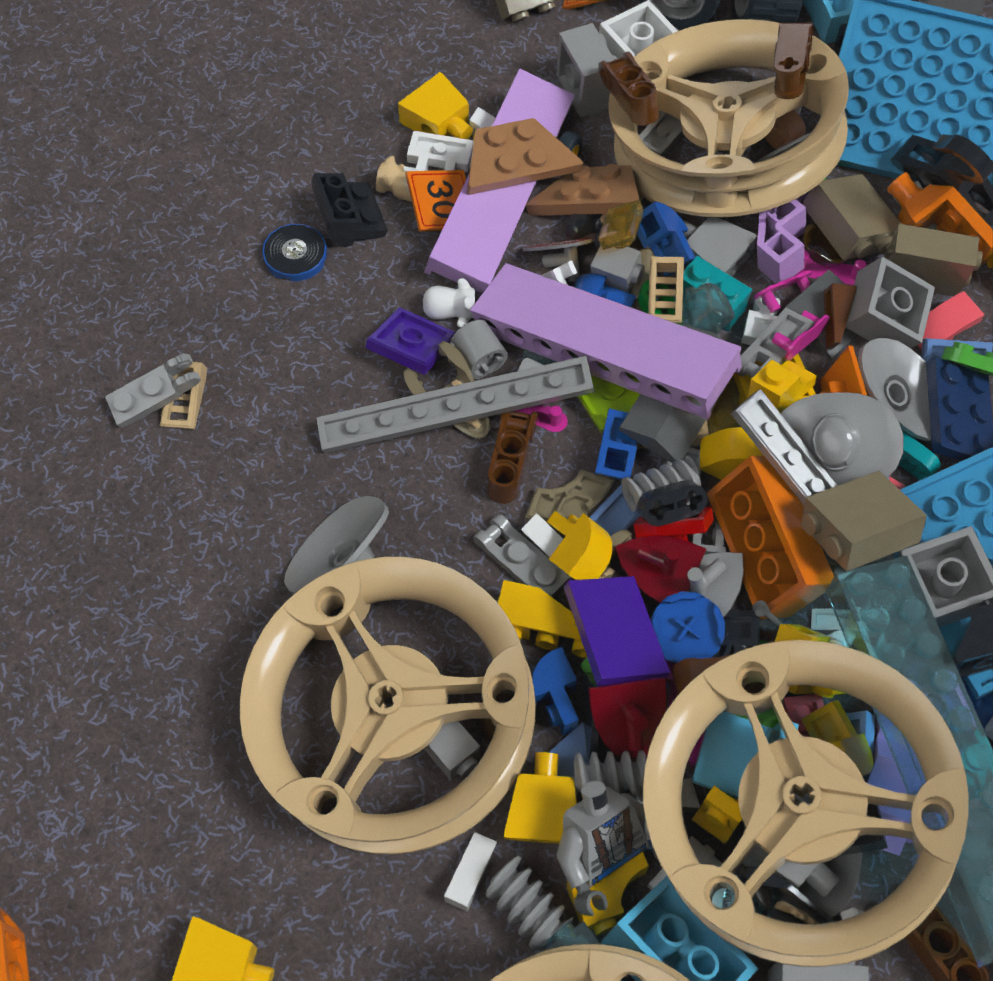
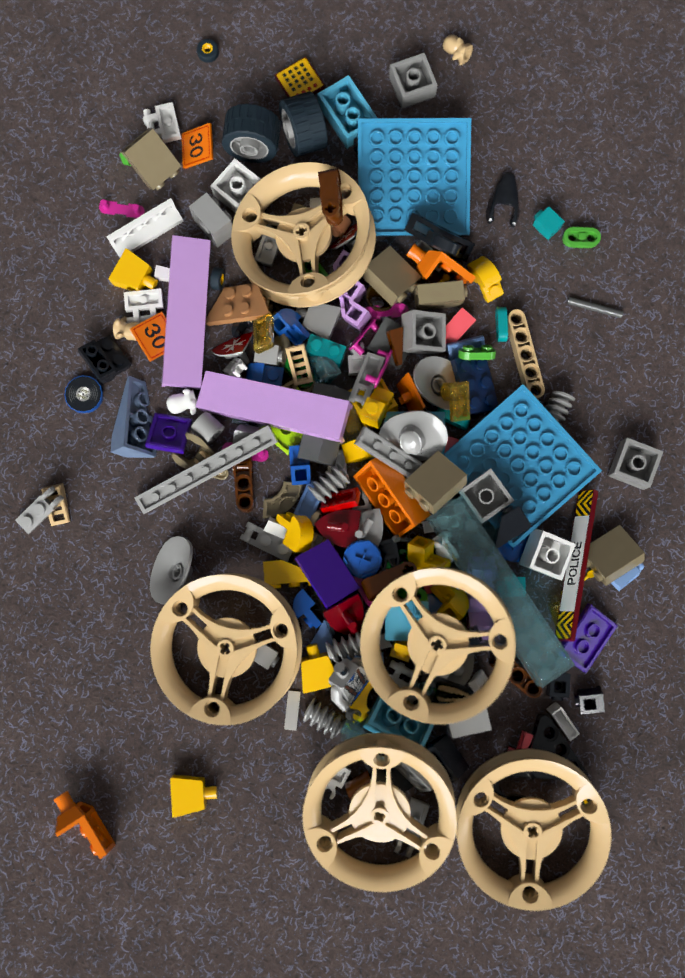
camera: 20 degrees left, 20 degrees up
(357, 311) = (133, 422): none -> sand blue wedge
(467, 39) = (129, 210): none -> dark pink piece
(477, 64) = (141, 232): none -> white fence
(517, 155) = (190, 298): medium nougat wing -> none
(631, 88) = (236, 231): reddish brown piece -> none
(671, 498) = (336, 495): black beam -> none
(931, 410) = (458, 396): none -> clear yellow plate

